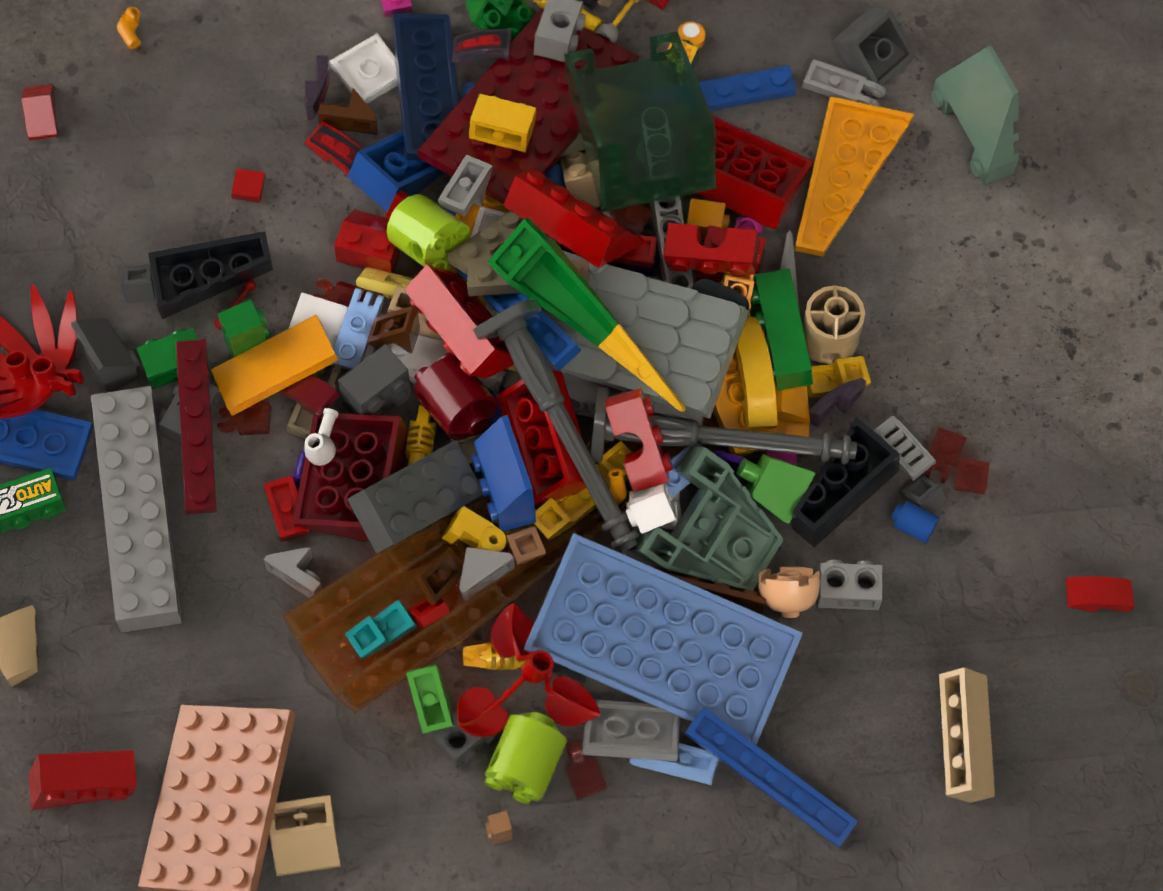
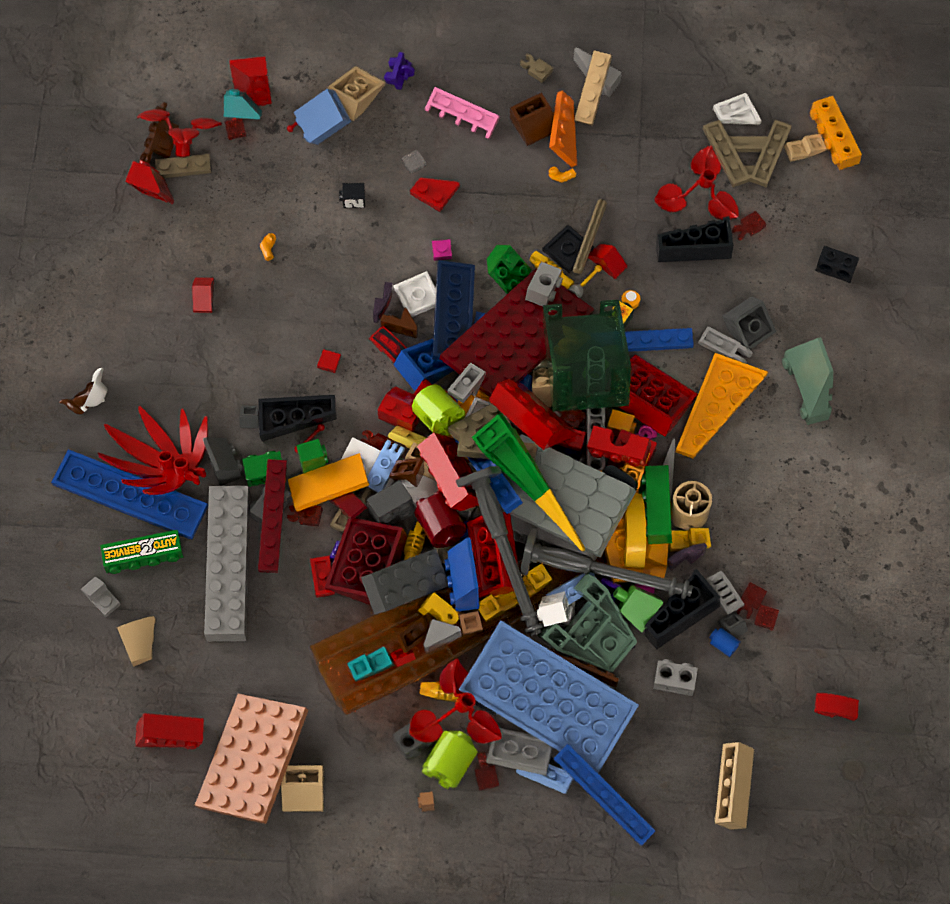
camera: 10 degrees right, 0 degrees up
(289, 568) = (318, 615): light grey slope -> none
(326, 449) = (353, 541): white bar -> none
(430, 698) = (395, 713): bright green slope -> none
(482, 43) = (492, 288): slope -> none
(502, 122) = (497, 344): yellow brick -> none
(617, 485) = (534, 593): light orange arm -> none
(632, 414) = (550, 548): arch -> none
(789, 590) = (635, 675): light nougat cylinder -> none

